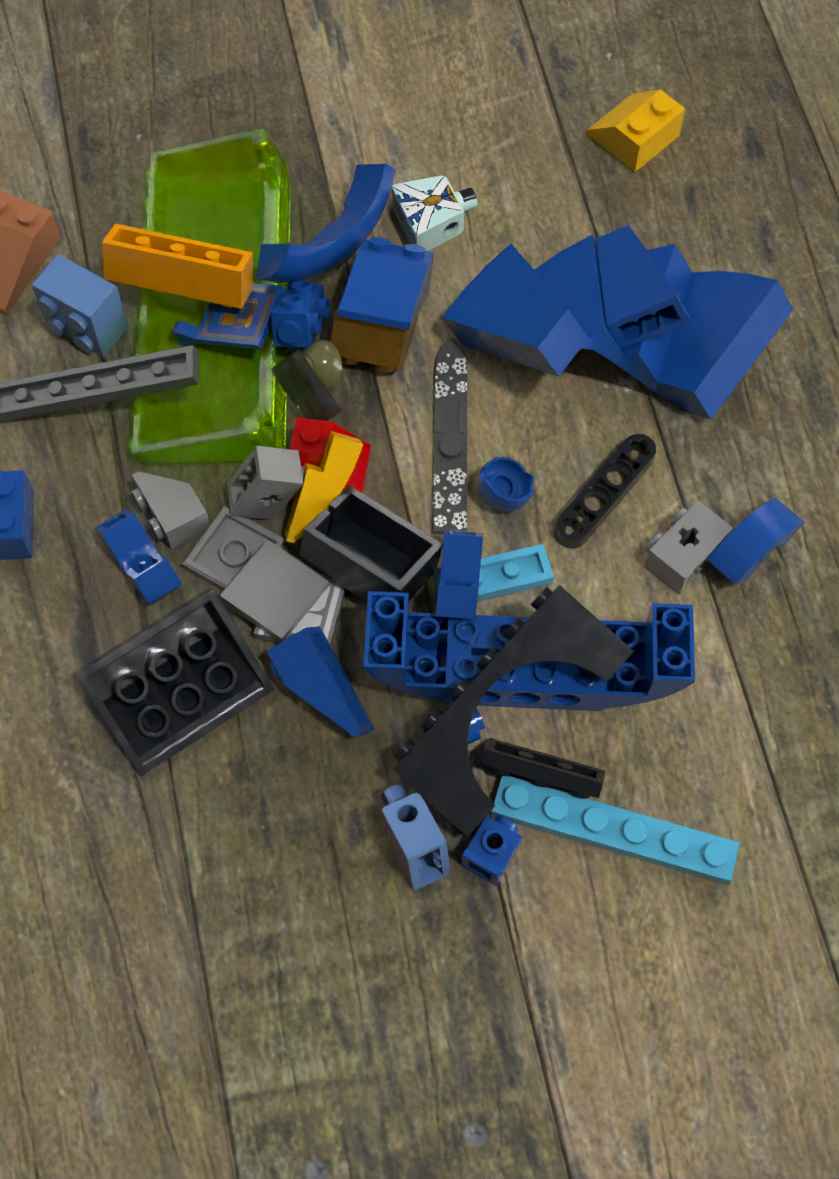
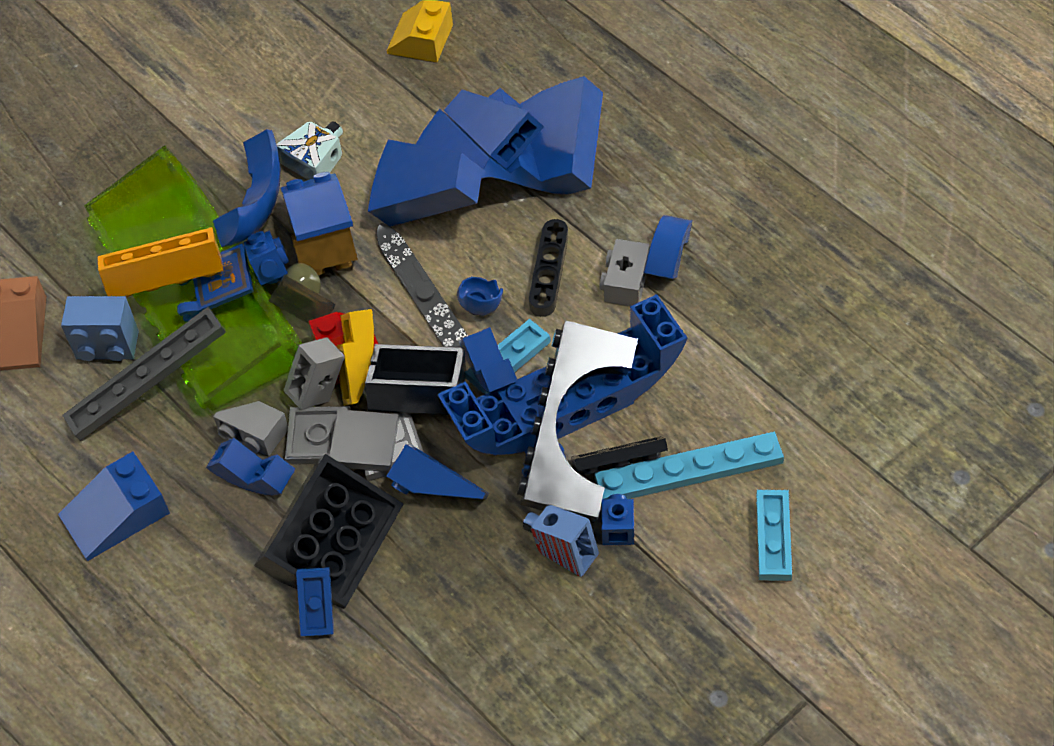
camera: 25 degrees left, 10 degrees down
(105, 756) = (315, 601): none -> blue plate
(659, 973) = (774, 535): none -> medium azure plate

